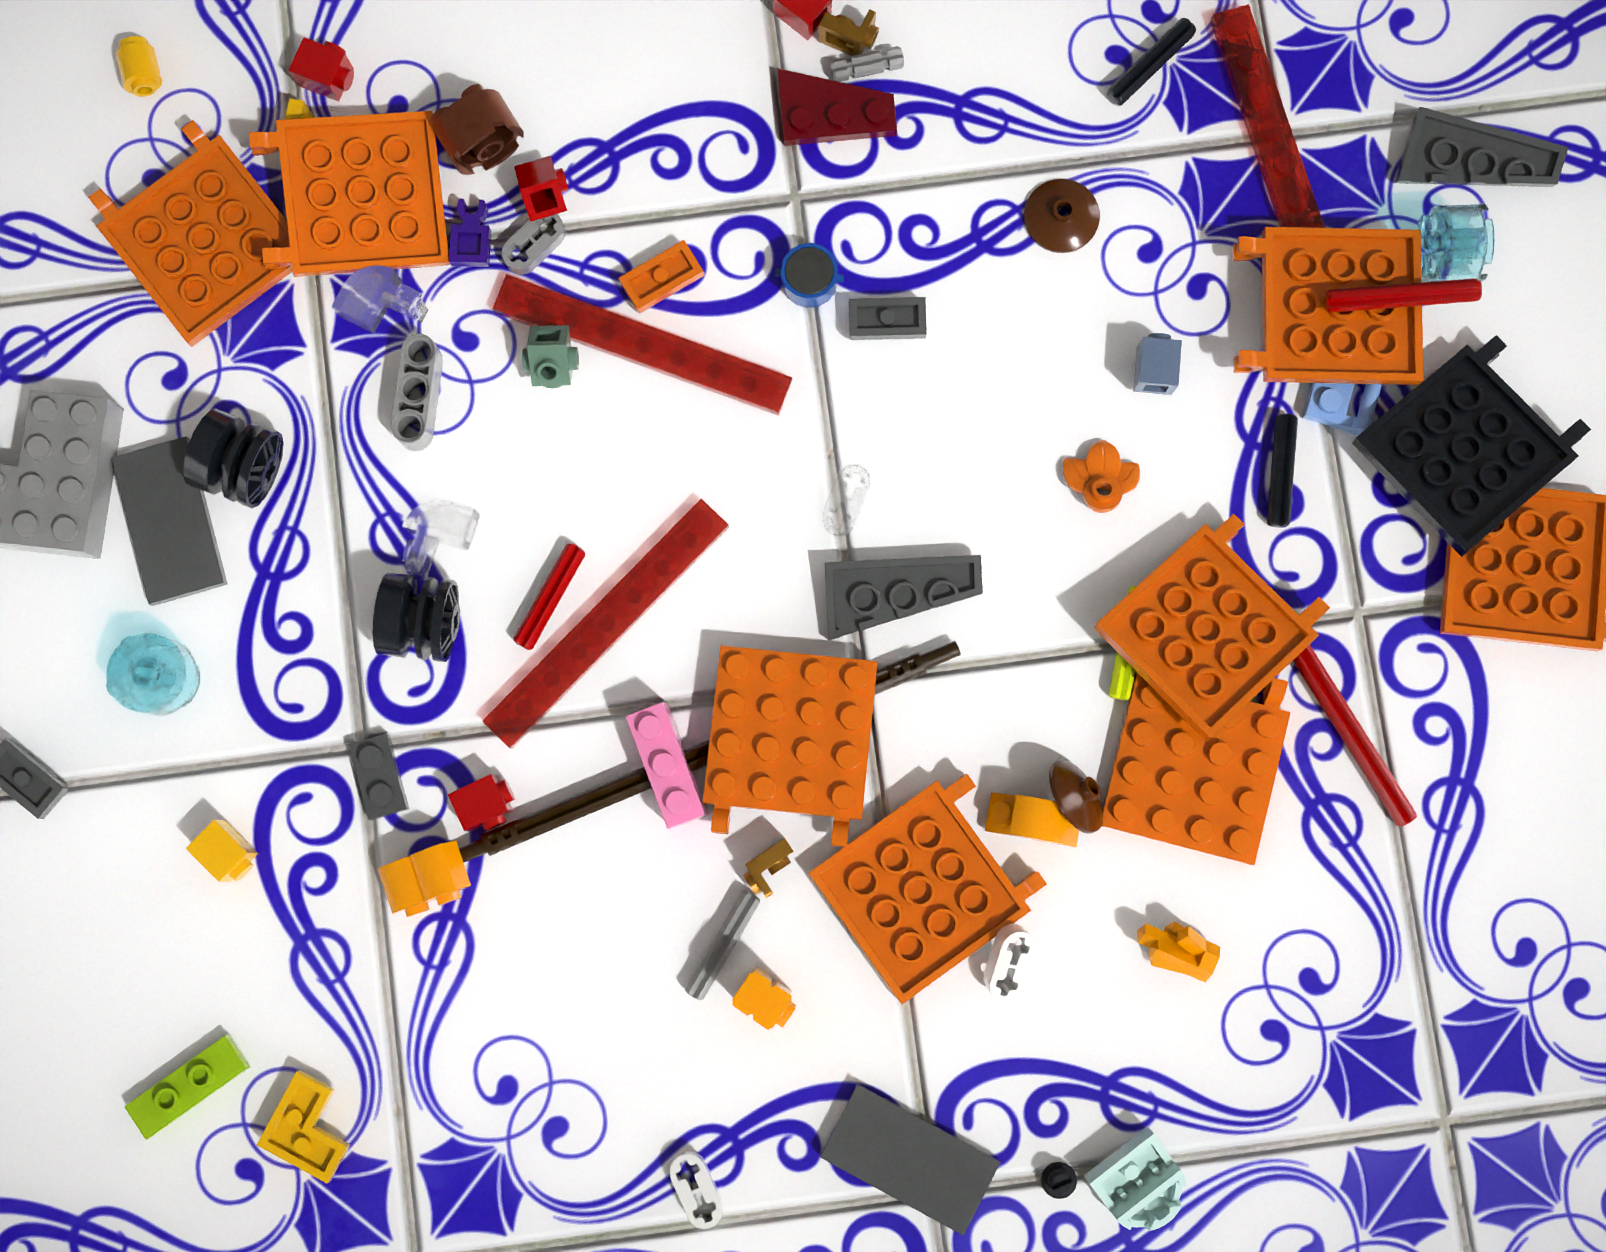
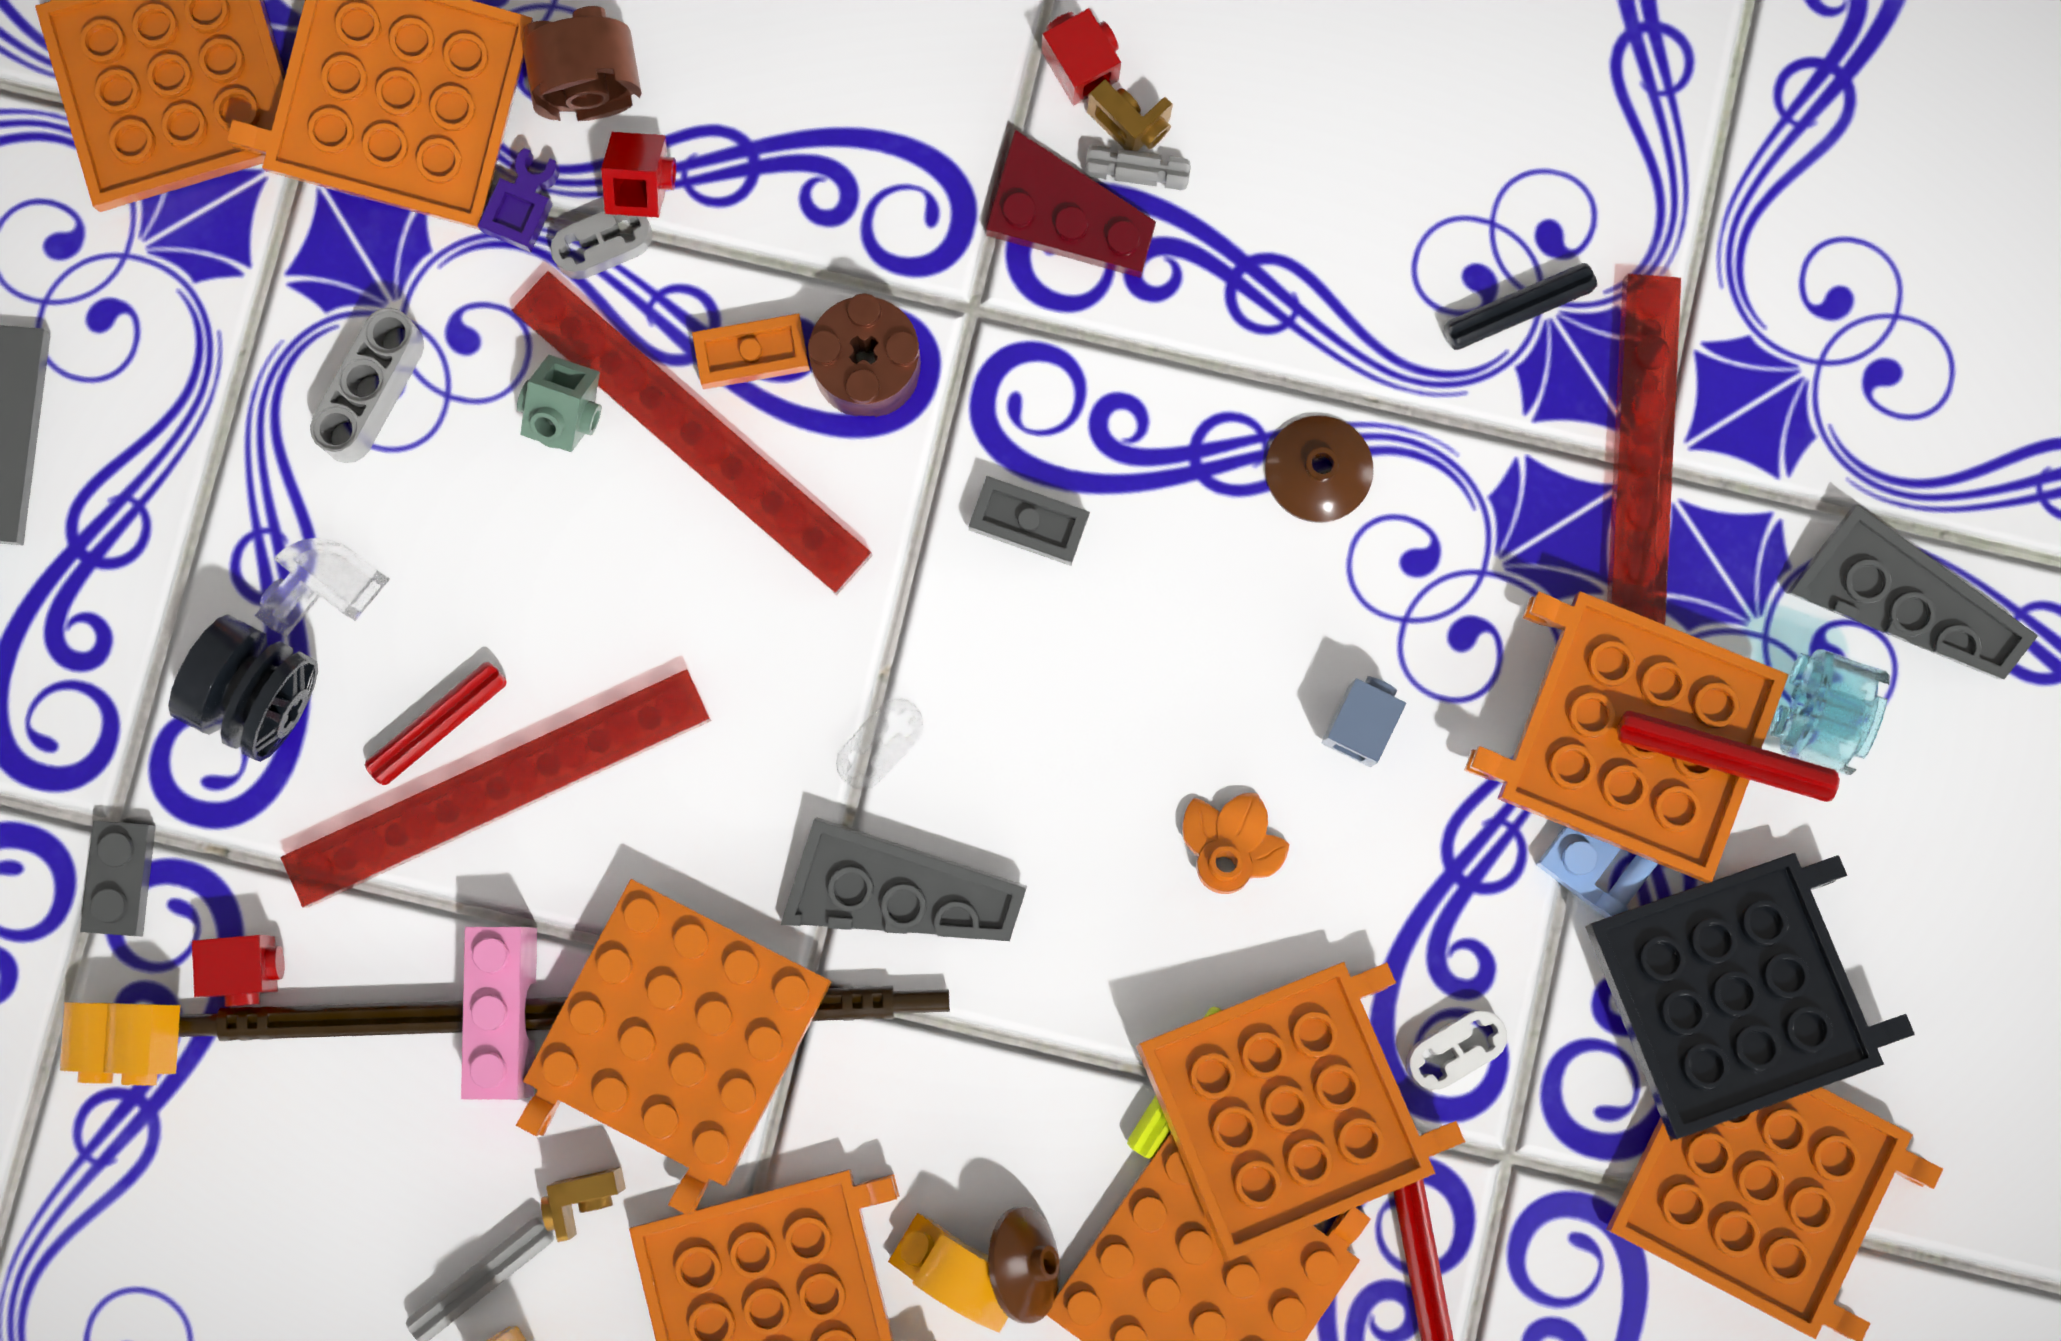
camera: 15 degrees right, 0 degrees up
(233, 458) = (88, 384): black wheel -> none
(370, 293) = (356, 231): clear brick -> none
(732, 230) = (865, 326): none -> copper brick
(809, 275) = (947, 423): piece -> none
(1282, 470) = (1479, 927): black axle -> none
(1305, 560) = (1463, 1061): none -> white beam

